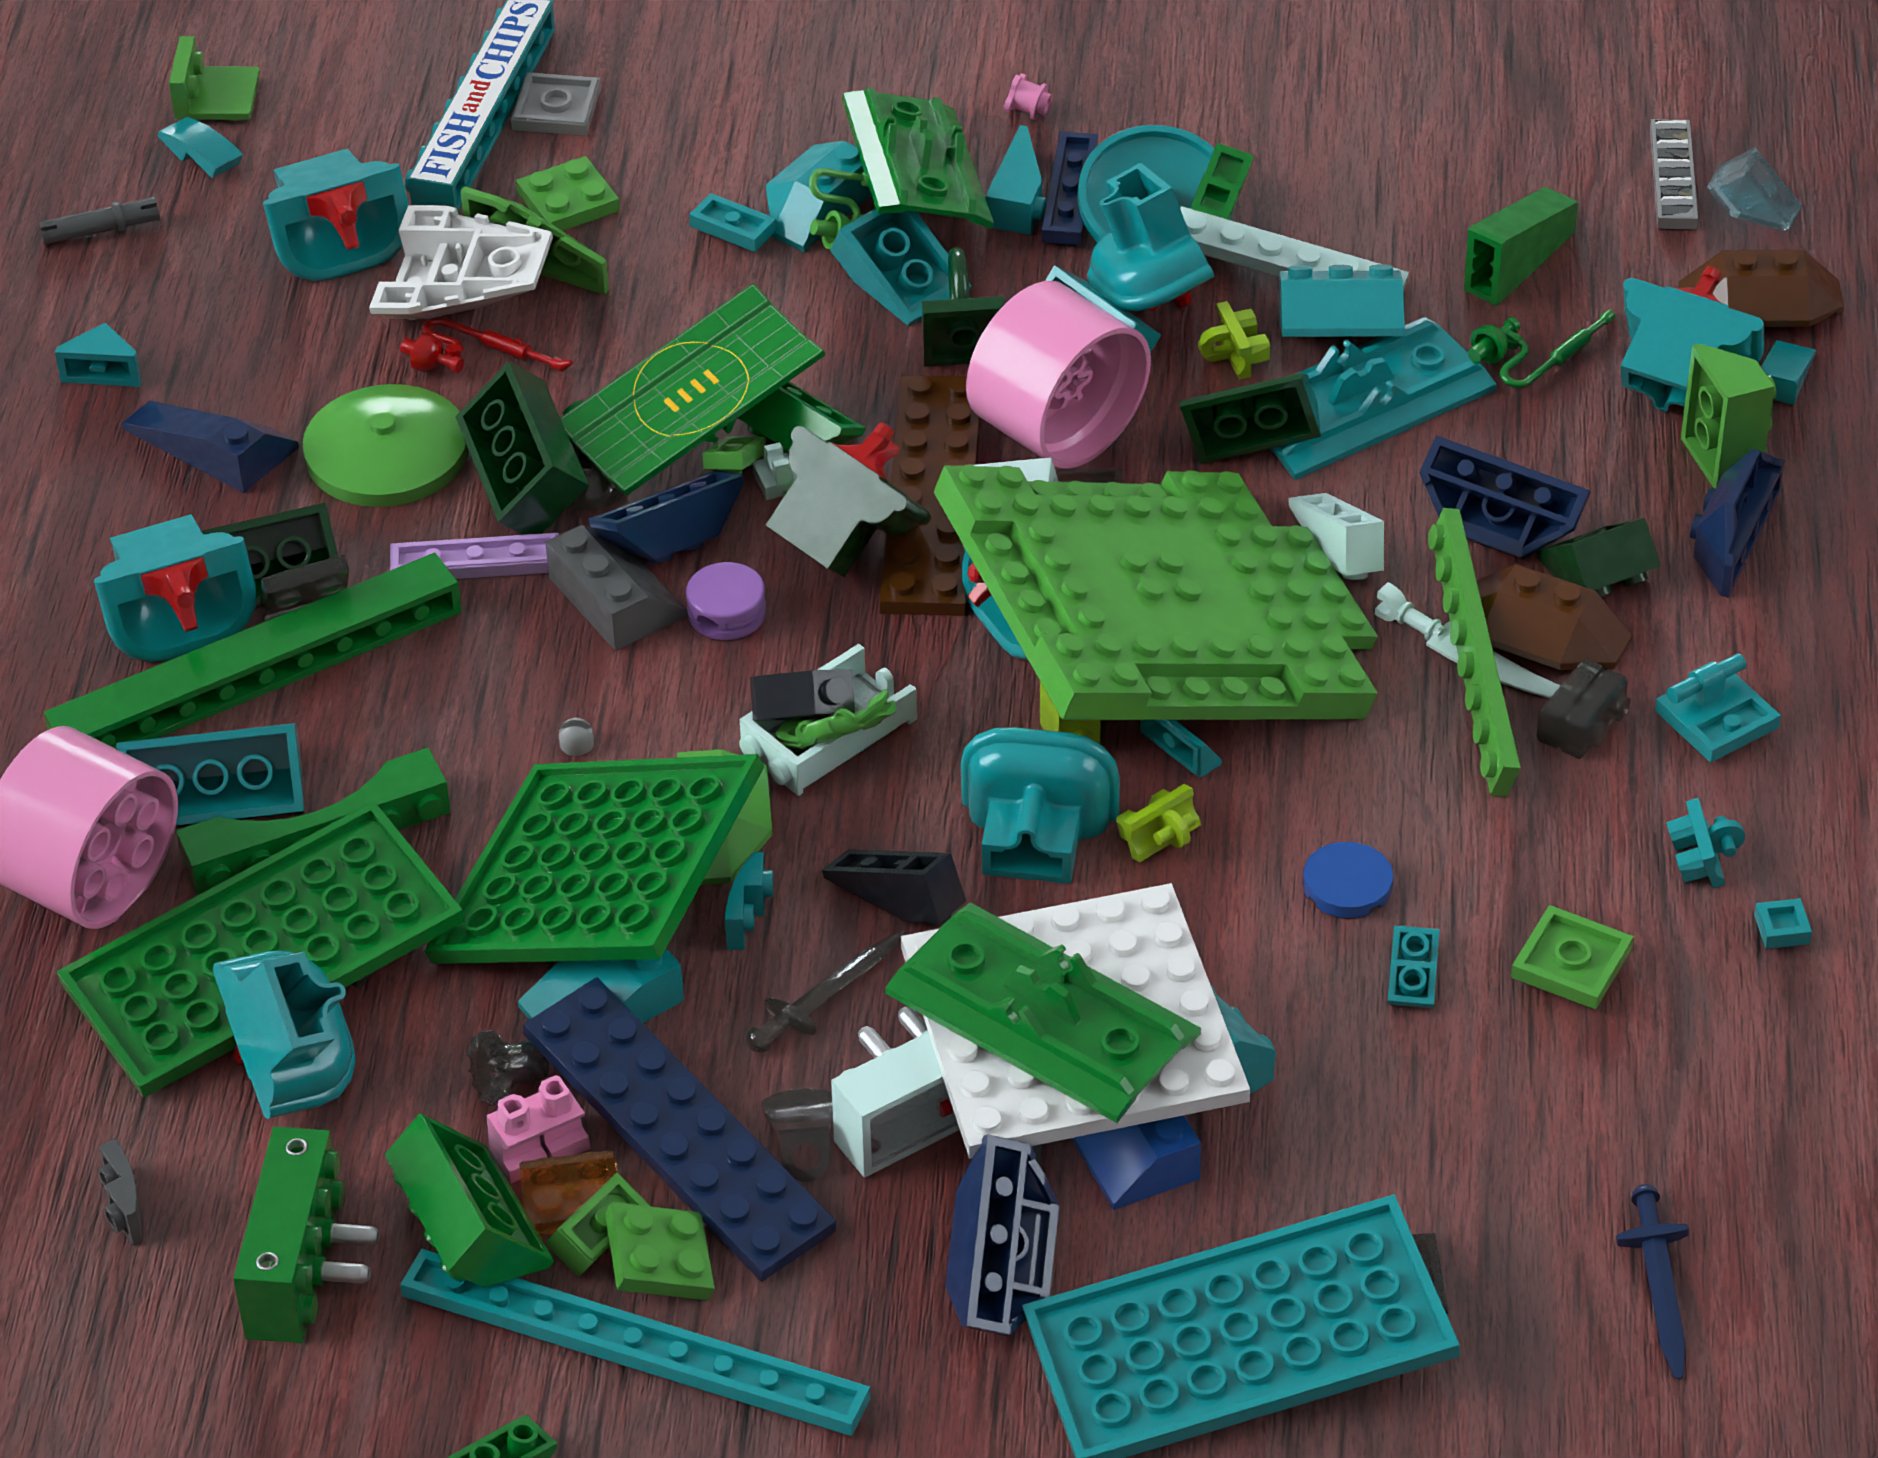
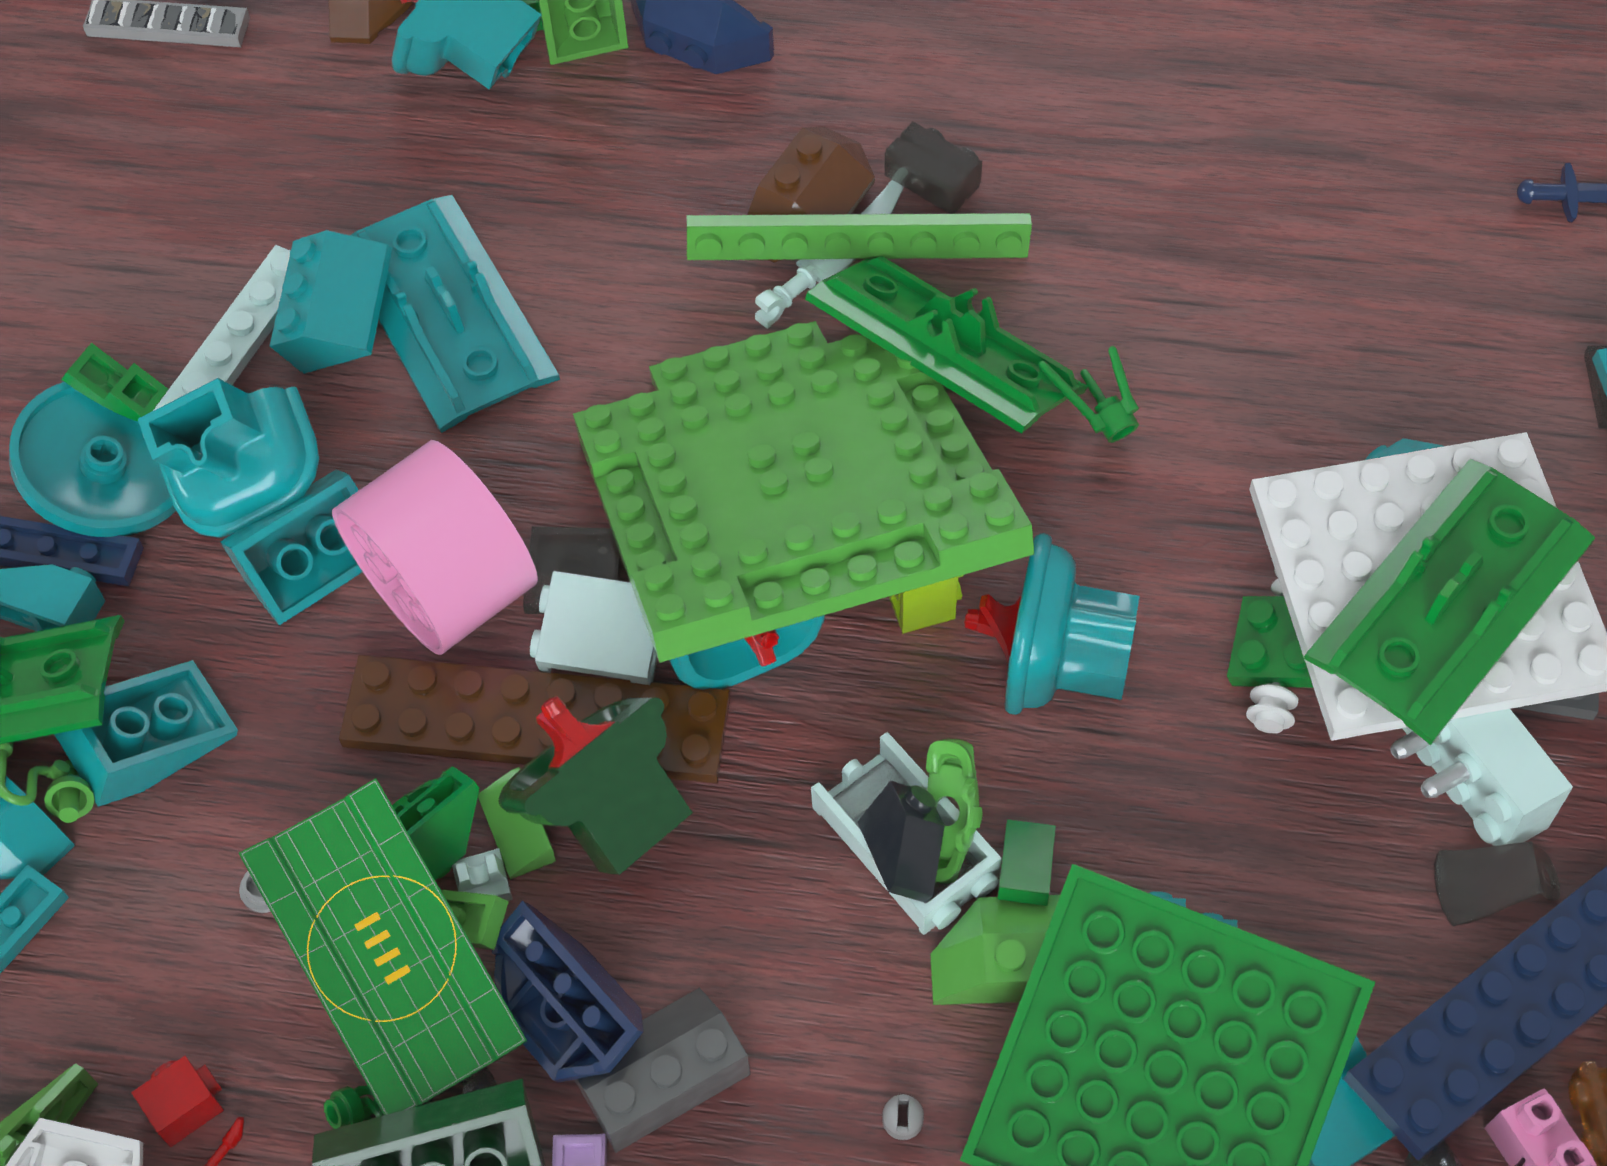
camera: 85 degrees left, 15 degrees up
(584, 326) = (179, 1099): none -> red brick
(726, 601) = (699, 939): medium lavender head -> none
(795, 1014) = (1335, 886): clear smoke sword -> none
(801, 794) = (1027, 862): none -> green tile
(901, 882) = (1155, 773): black slope -> none
(956, 324) = (293, 656): dark green tile -> none
(1163, 822) = (1056, 511): lime hips -> none
(1235, 340) = (338, 409): lime hips -> none
(1252, 417) = (495, 386): dark green slope -> none
(1284, 846) = (1112, 416): none -> green plant
(1345, 533) = (674, 328): light aqua slope -> none
(1348, 879) = (1152, 372): blue tile -> none
(1352, 715) = (945, 339): none -> green hinge
(1413, 966) = (1264, 338): teal slope -> none
(1491, 345) = (401, 184): green piece -> none
(1500, 500) = (650, 193): dark blue wedge -> none
(1516, 242) = (260, 144): green slope -> none
(1572, 957) = (1248, 211): bright green plate -> none
(1604, 556) = (725, 133): dark green slope -> none
(1717, 709) = (939, 71): teal plate -> none
(1720, 837) = (1111, 93): teal hips -> none
(1783, 923) = (1206, 58): teal plate -> none

